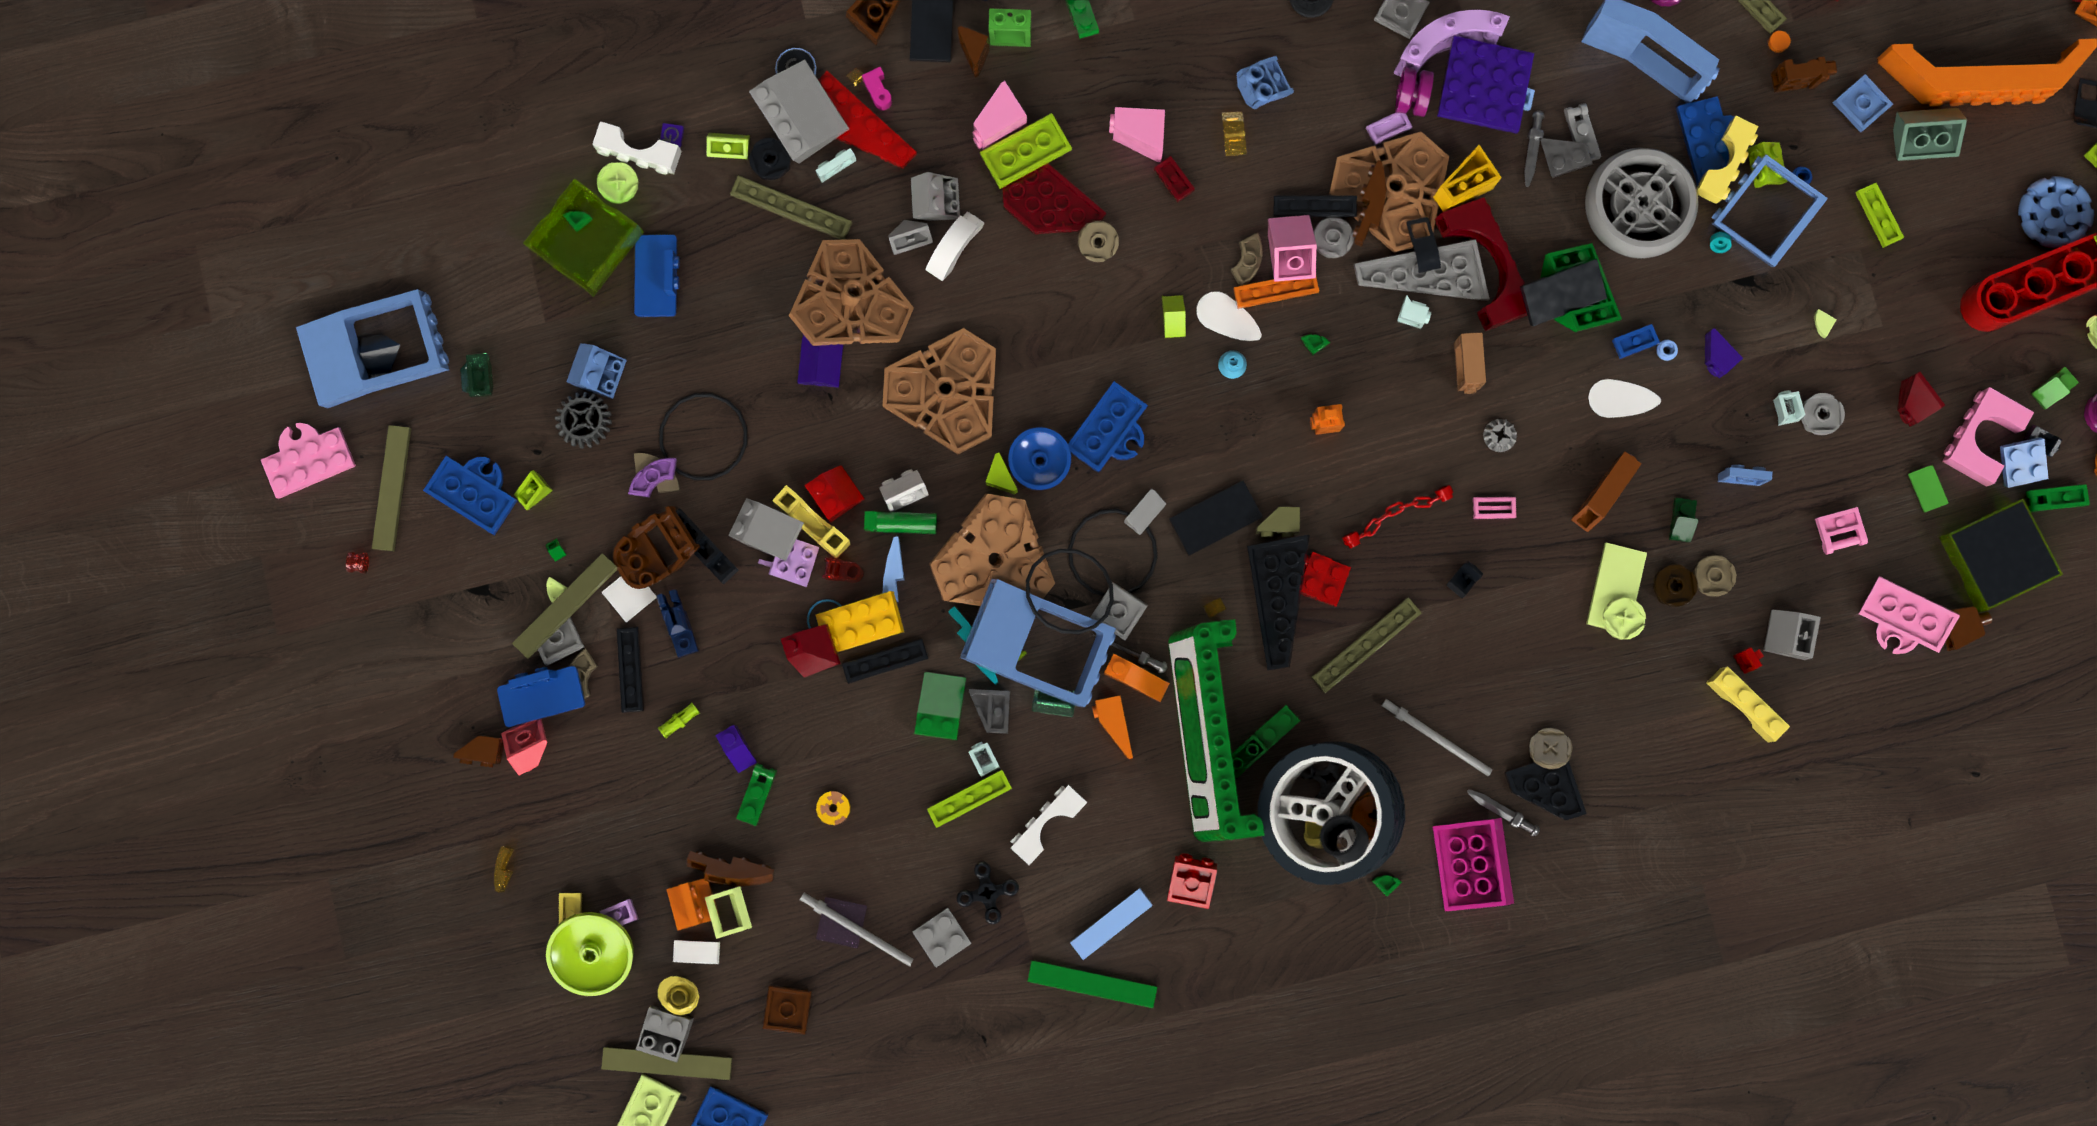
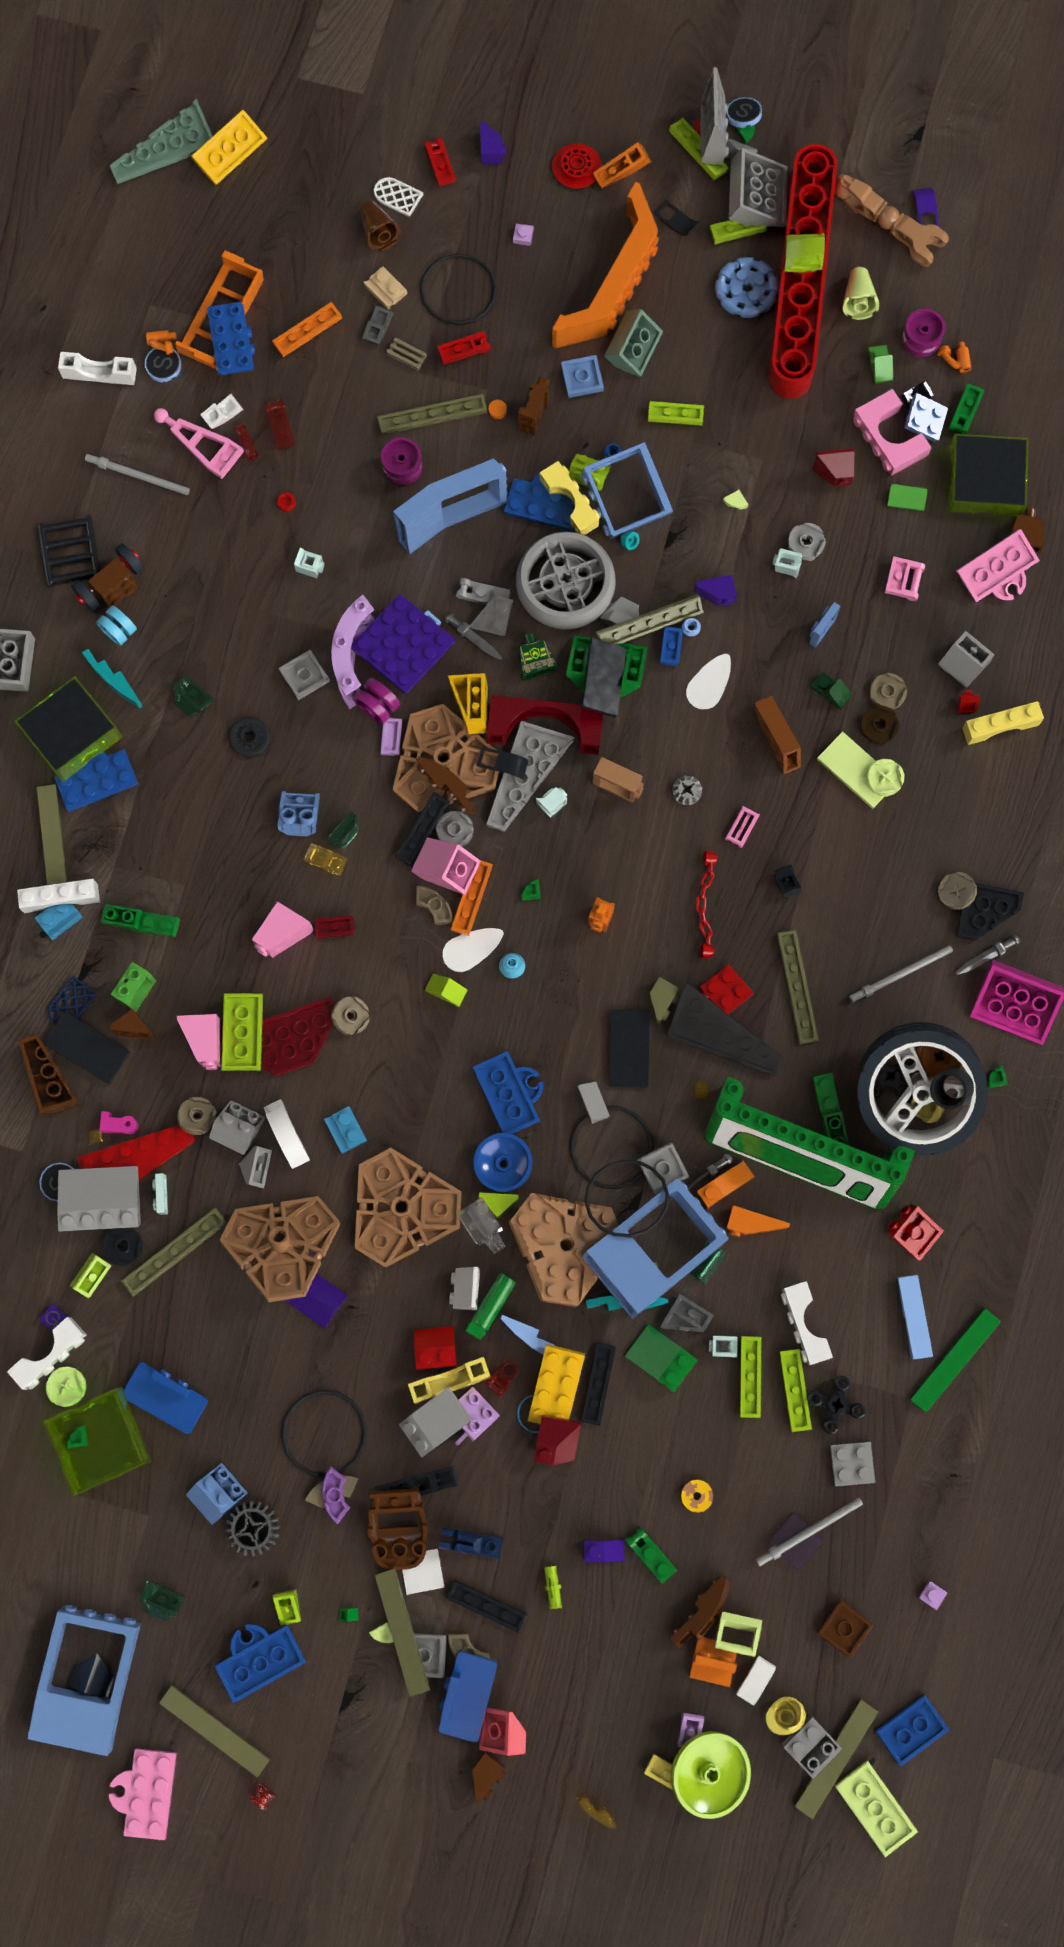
camera: 60 degrees left, 5 degrees down
(862, 1076) = (932, 1595): none -> lavender plate
(932, 148) = (200, 1107): none -> dark tan plate
(970, 472) = (482, 1225): none -> clear hinge
(980, 847) = (795, 1390): none -> lime plate
(989, 298) = (345, 1130): none -> dark azure plate
(1270, 136) = (344, 832): none -> clear green slope
(1546, 218) = (536, 658): none -> dark green torso
(1638, 278) = (620, 611): none -> light grey slope
(1649, 307) = (651, 621): none -> olive tile

